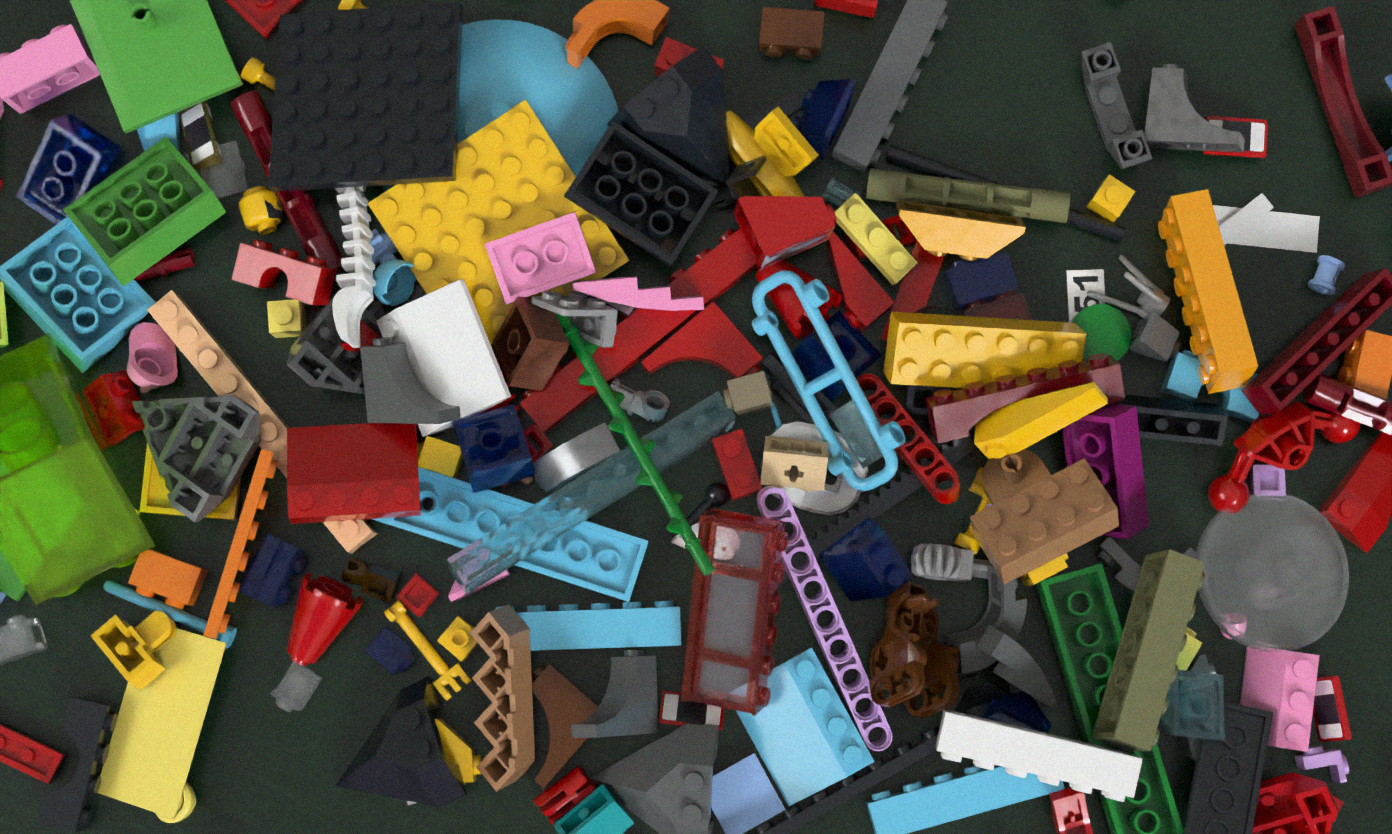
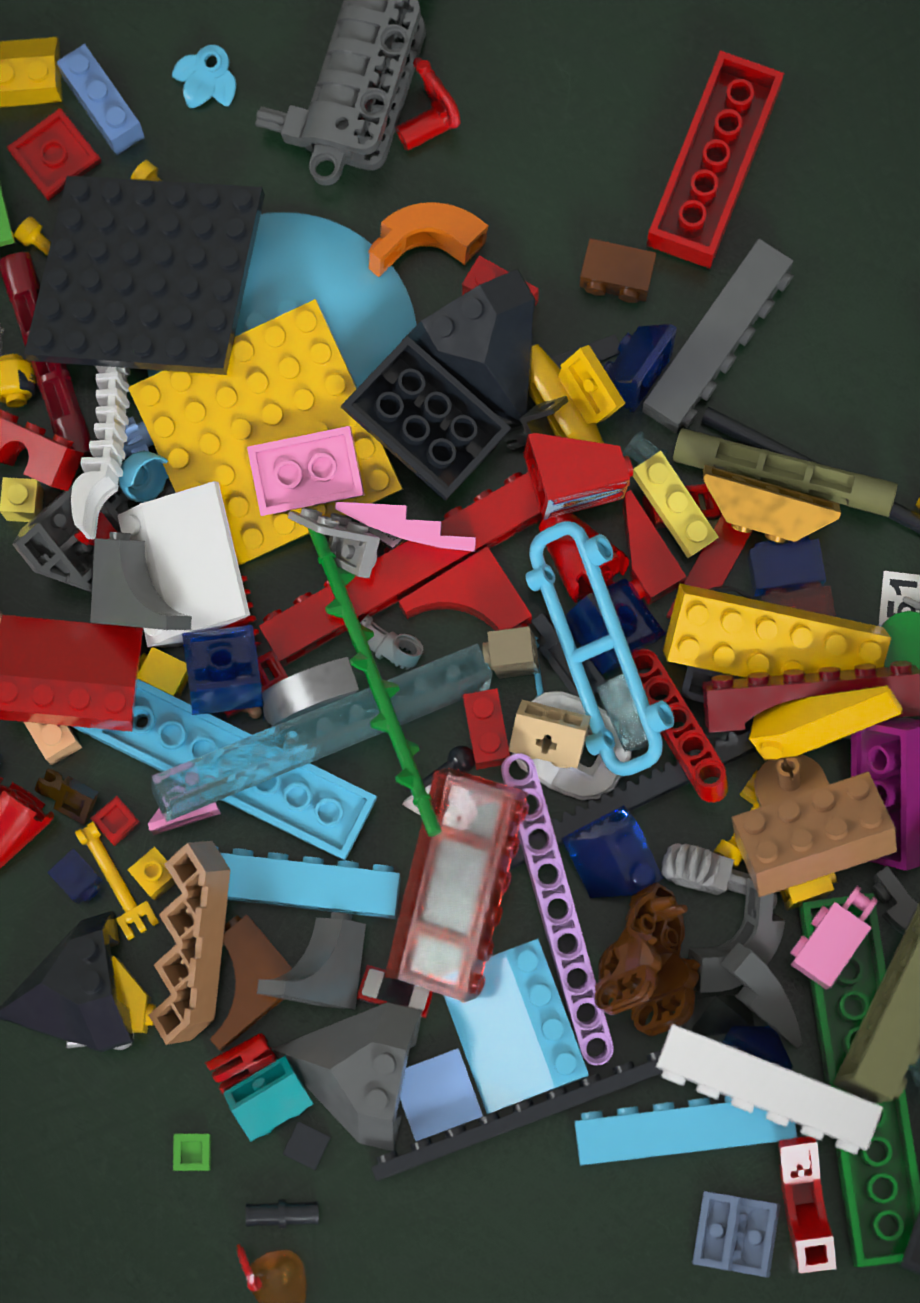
camera: 15 degrees right, 5 degrees down
(529, 345) = (279, 563): copper brick -> none
(1073, 611) = (833, 940): none -> bright pink brick

